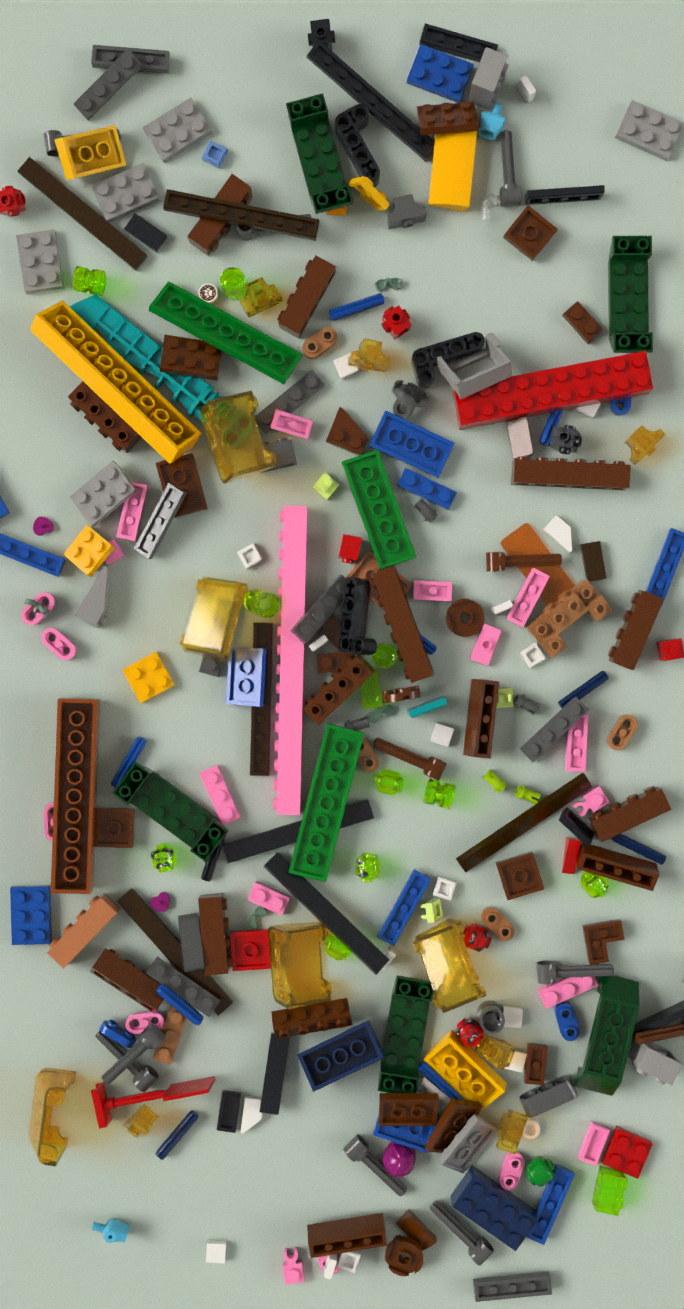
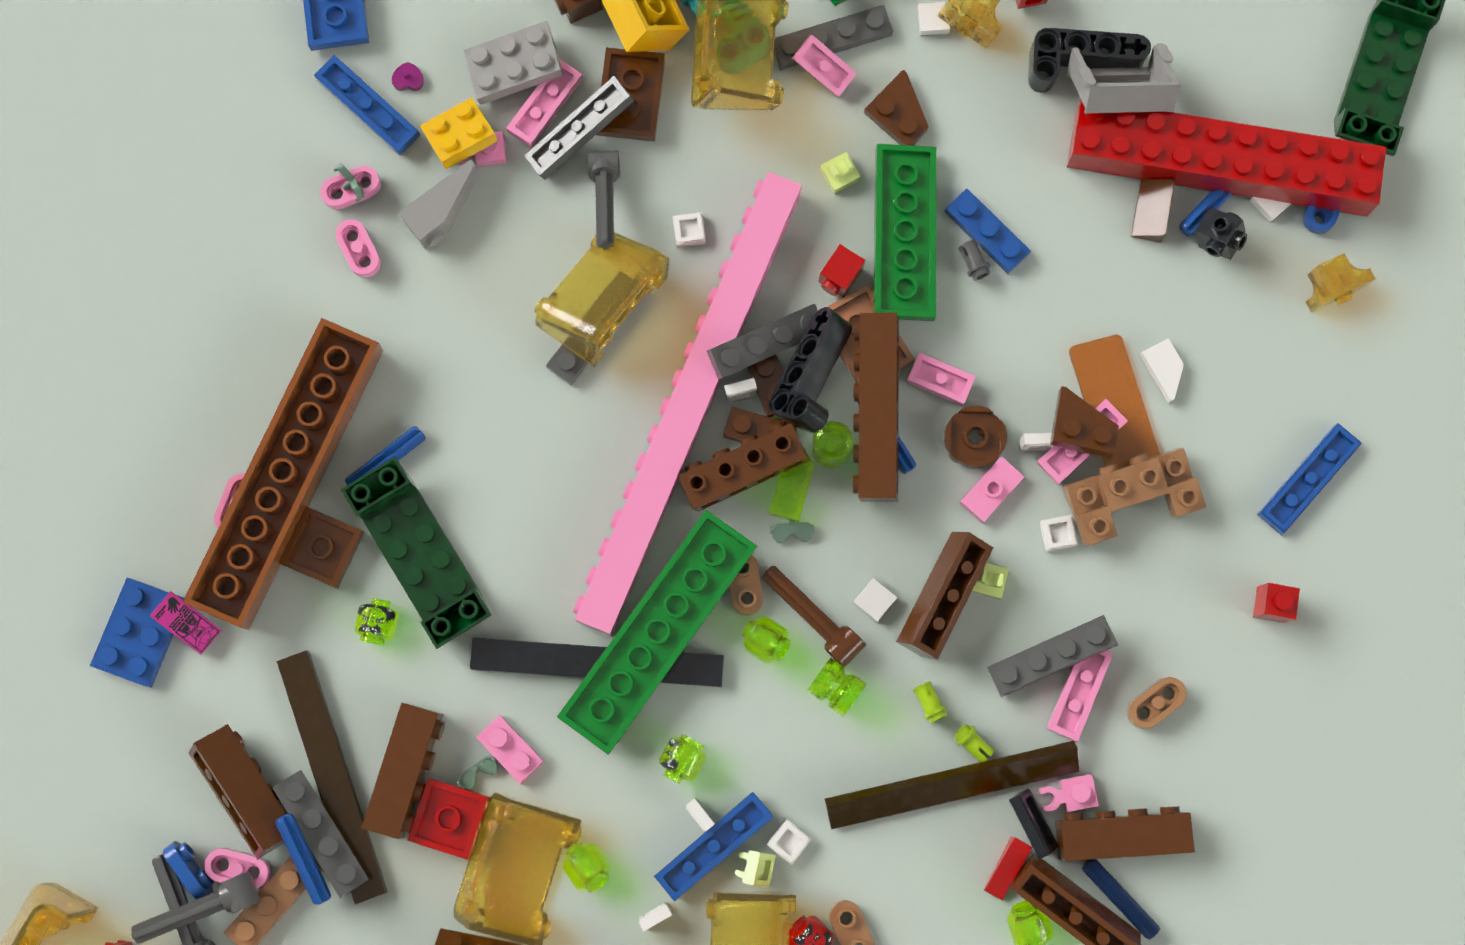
camera: 20 degrees right, 10 degrees down
(55, 901) = (185, 623): none -> dark pink tile
(83, 931) = (207, 685): nougat brick -> none
(148, 677) = (468, 346): yellow plate -> none
(160, 902) = (342, 691): magenta piece -> none
(185, 540) = (604, 171): none -> dark grey axle
(191, 942) = (361, 768): dark grey beam -> none
(211, 863) = (448, 655): black axle -> none
(220, 795) = (501, 561): bright pink plate -> none
(246, 676) = (613, 397): plate -> none
(262, 603) = (679, 298): clear neon green wheel -> none
(262, 715) = (621, 443): dark brown tile -> none
(284, 453) = (796, 105): dark grey brick -> none
(327, 914) = (591, 808): black tile -> none
(358, 724) = (755, 534): dark grey pin -> none
(389, 893) = (700, 815): none -> white tile
(401, 694) = (839, 511): reddish brown plate -> none
(410, 395) = (1010, 89): dark grey tile -> none
(411, 444) = (988, 159): blue plate -> none
(427, 706) = (868, 544): teal tile -> none
(498, 561) = (1056, 372): reddish brown axle -> none
(519, 875) = (915, 867): reddish brown plate -> none
(525, 590) = (1082, 426): none -> reddish brown wing
(526, 704) = (1022, 602): dark grey pin -> none
(570, 474) = (1211, 287): reddish brown brick -> none
(582, 322) = (1302, 83): reddish brown plate -> none
(585, 688) = (1125, 613): dark blue axle -> none
(593, 561) = (1201, 427): dark brown tile -> none
(635, 630) = (1232, 550): reddish brown brick -> none

